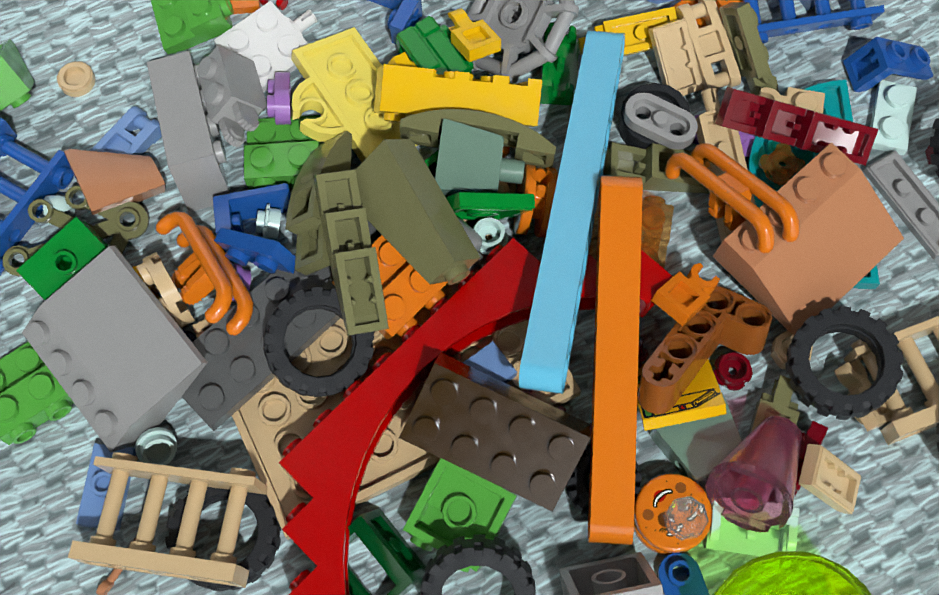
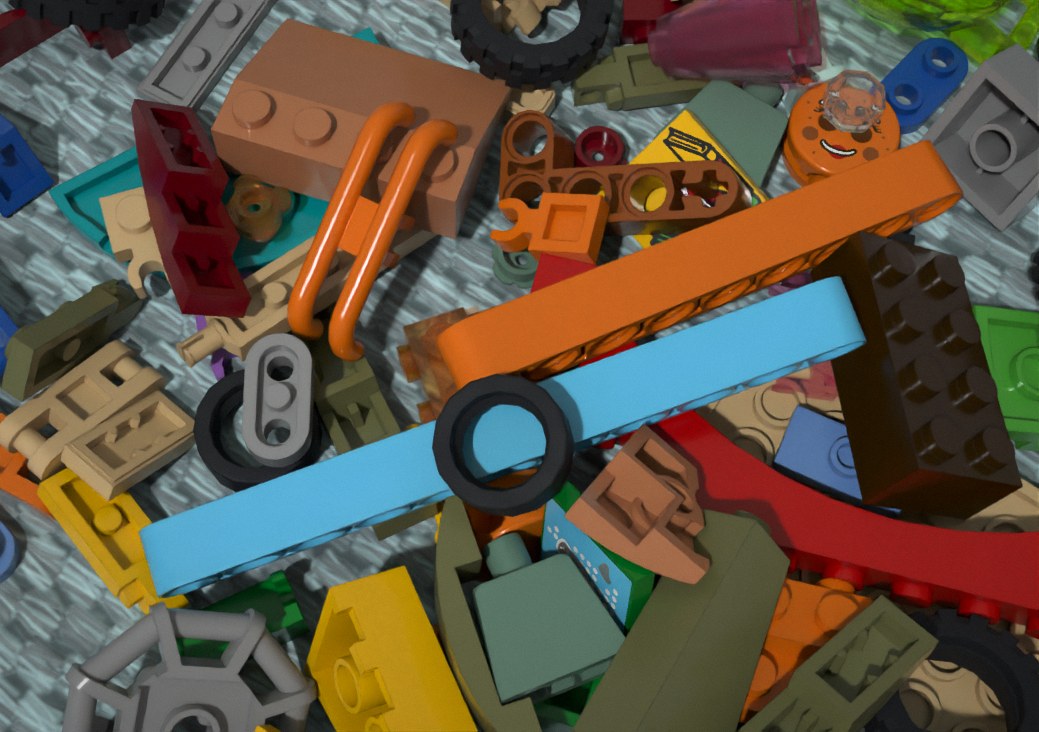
camera: 125 degrees left, 0 degrees up
(496, 227) = (646, 508): none -> nougat slope
(564, 151) = (471, 402): none -> black tyre
(893, 116) = (76, 115): light aqua plate -> none

